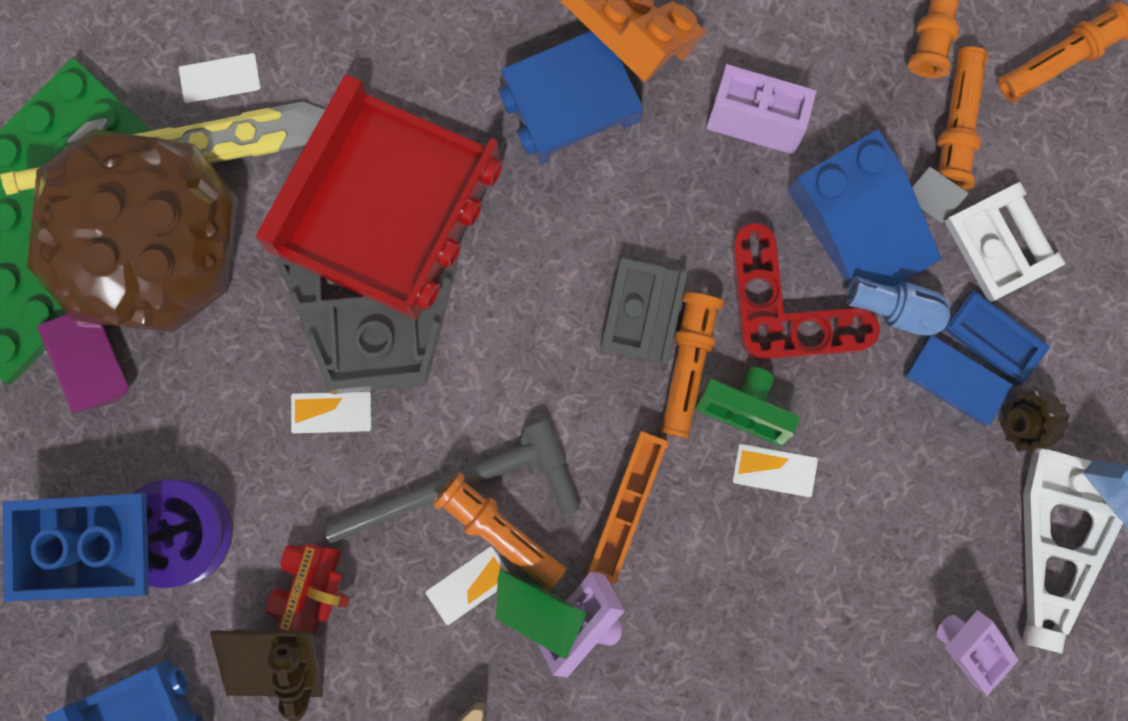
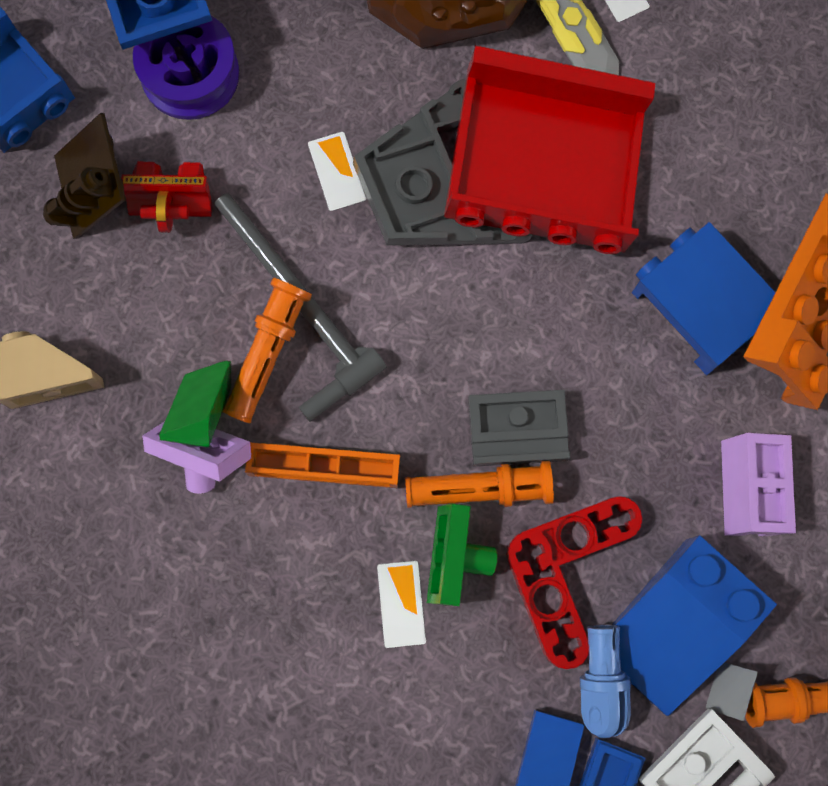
camera: 70 degrees right, 5 degrees down
(467, 586) = (208, 338): white sticker -> none

